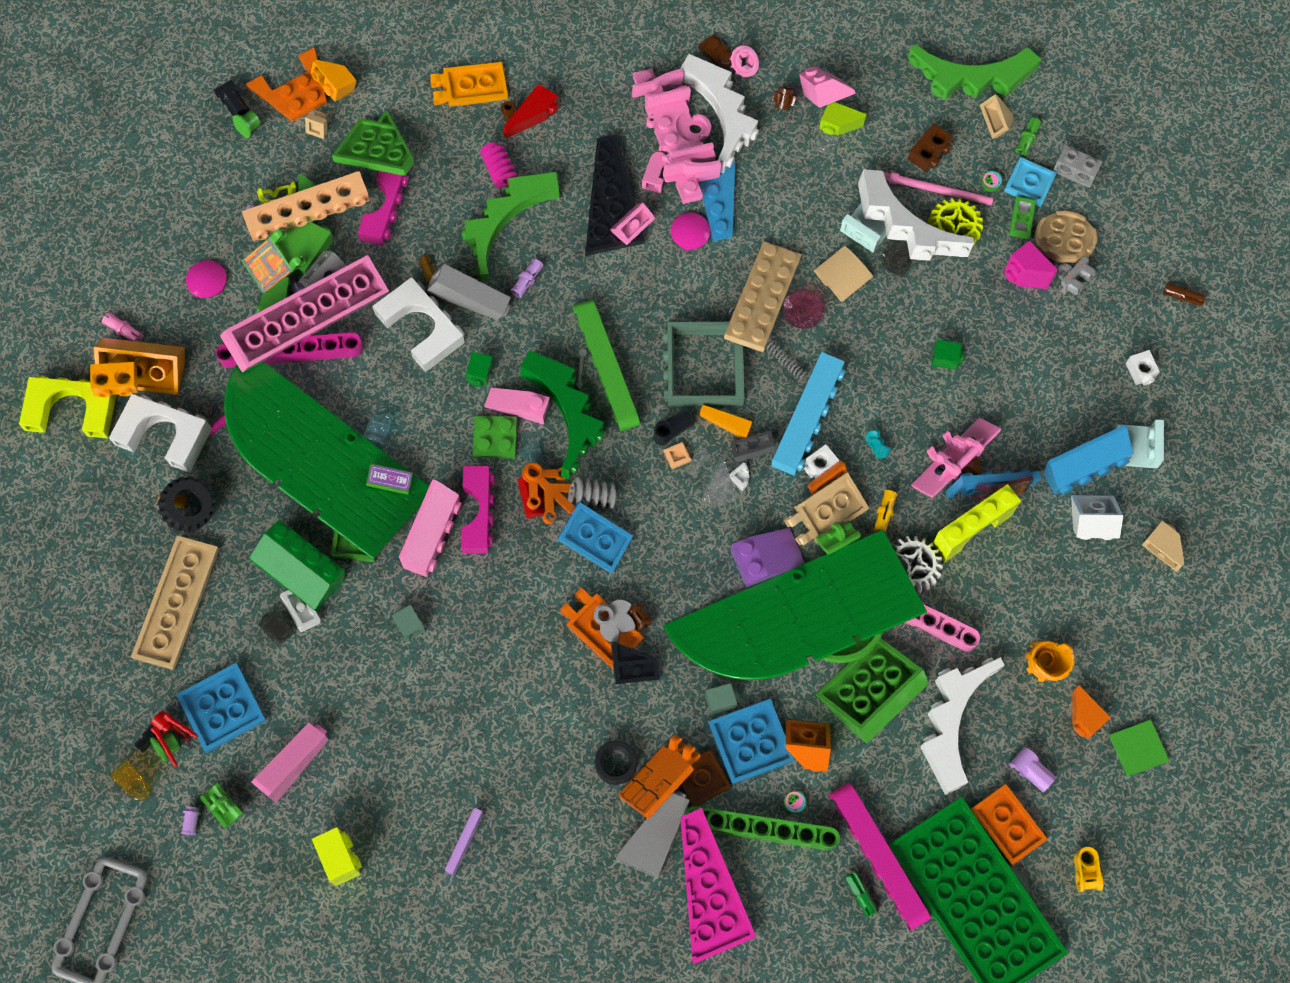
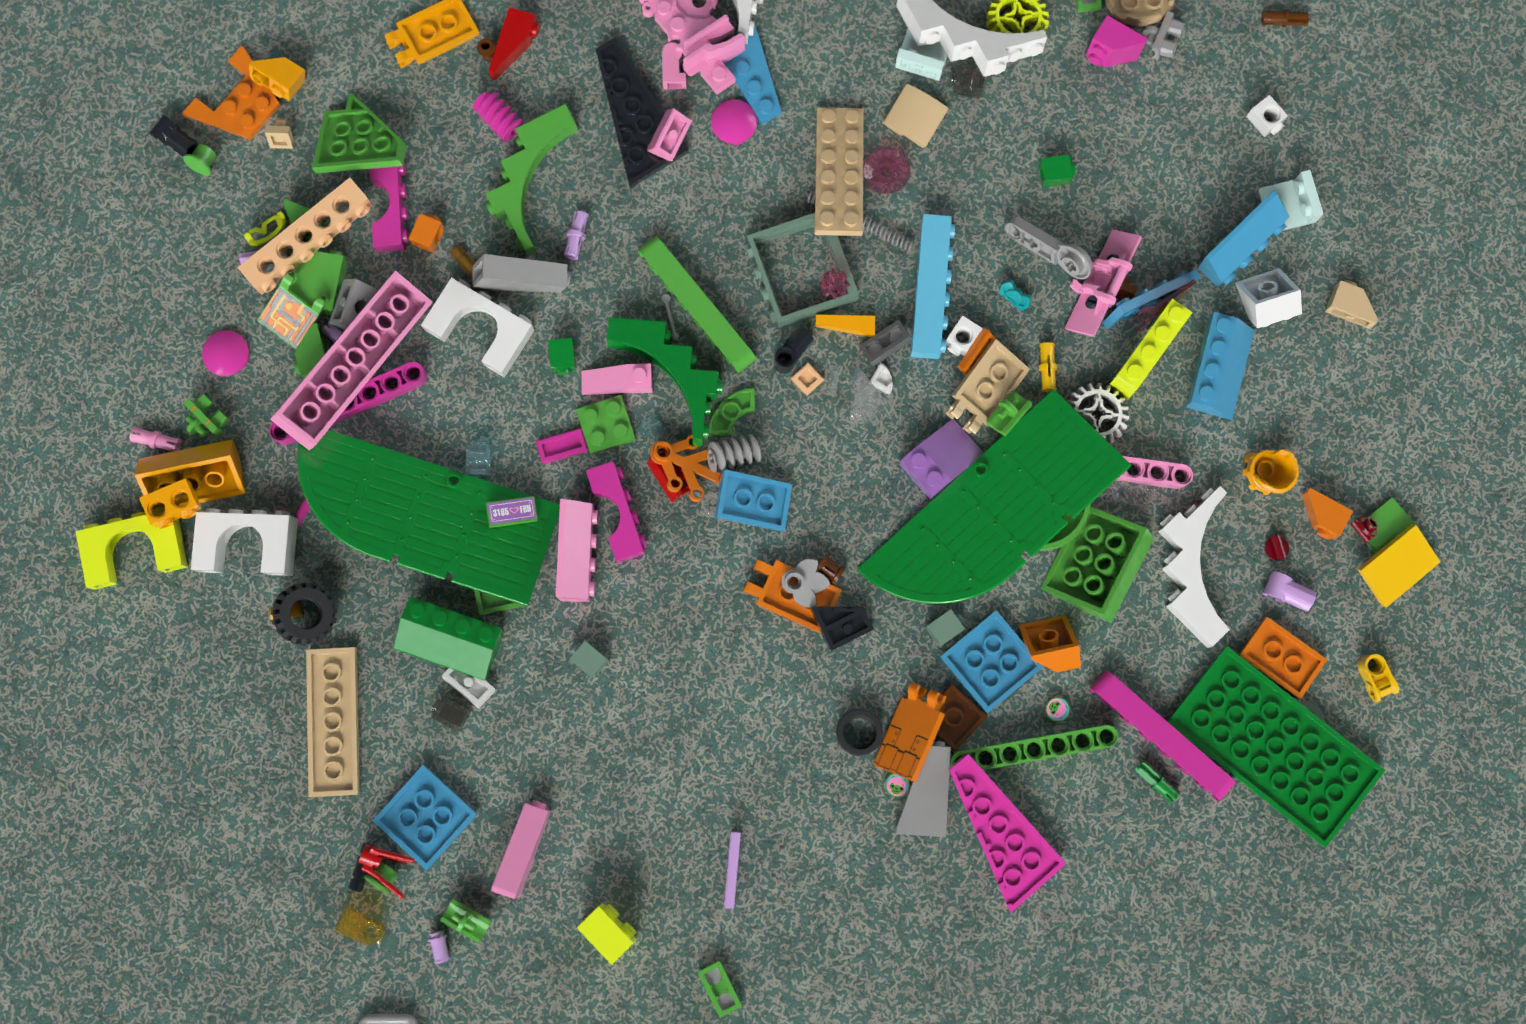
camera: 15 degrees left, 10 degrees up
(175, 330) = (199, 408): none -> bright green hips
(405, 237) = (427, 232): none -> orange brick
(415, 941) = (719, 988): none -> bright green piece
(452, 442) = (562, 446): none -> dark pink tile
(602, 460) = (730, 411): none -> bright green tile
(632, 819) = (896, 785): none -> tile
(725, 382) = (834, 283): none -> clear pink gear
(933, 425) = (1068, 256): none -> light grey beam
(1034, 729) = (1276, 548): none -> dark red plate
(1035, 559) = (1220, 366): none -> dark azure slope
(1118, 736) = (1365, 527): none -> dark red plate
(1137, 779) = (1398, 565): none -> yellow tile

